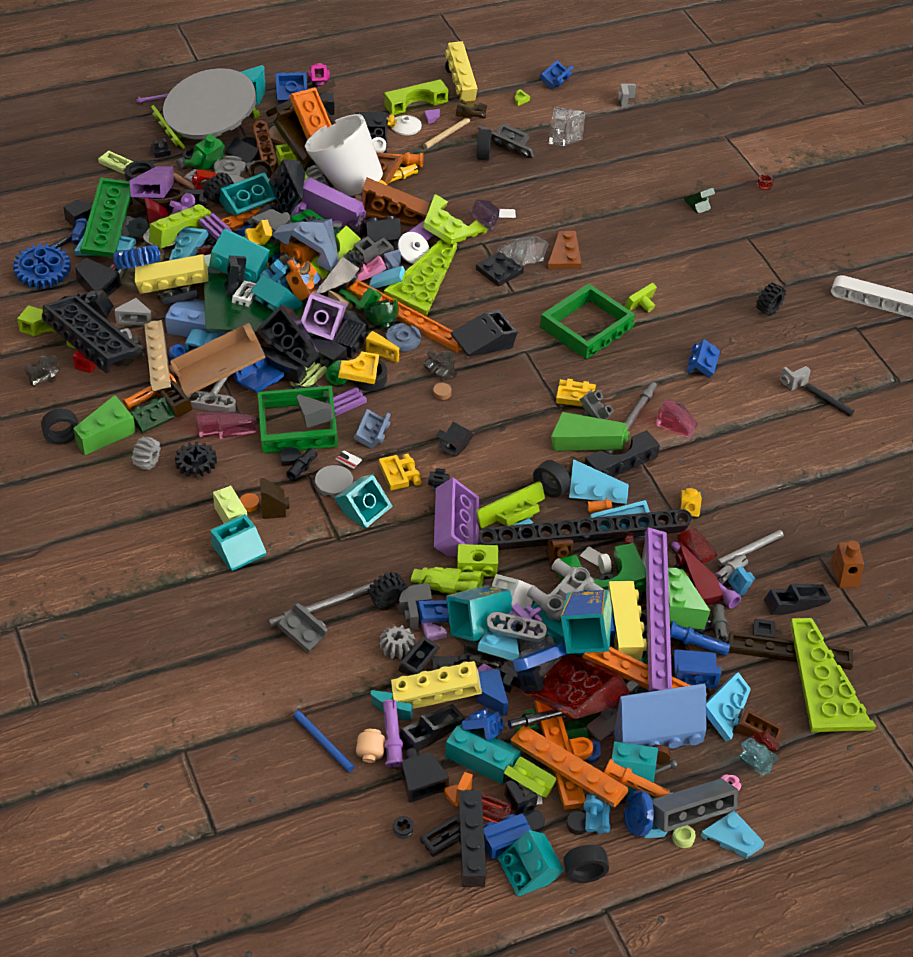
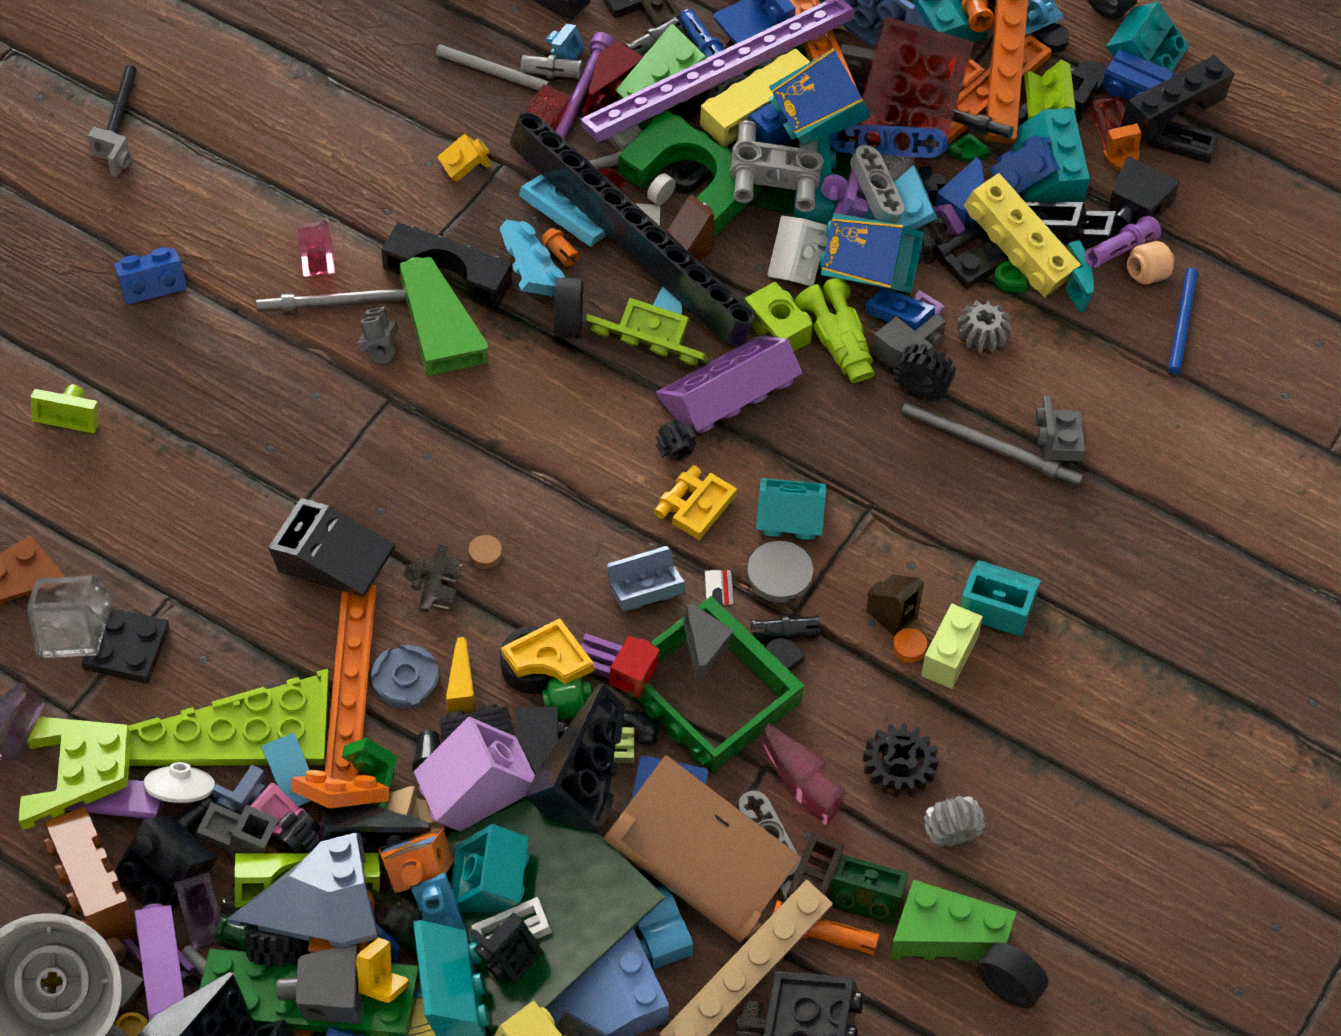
camera: 125 degrees left, 10 degrees up
(176, 351) = (710, 953): blue tile -> none
(292, 369) = (623, 782): black slope -> none
(322, 380) = (634, 666): none -> red brick
(356, 273) = (337, 792): none -> orange plate
(382, 312) = (386, 717): dark green cylinder -> none
(399, 823) = (1208, 186): black bush -> none
(418, 656) = (996, 289): black slope -> none
(455, 439) = (582, 468): black brick -> none
(571, 391) = (362, 380): yellow plate -> none
(588, 293) = (172, 493): green window -> none

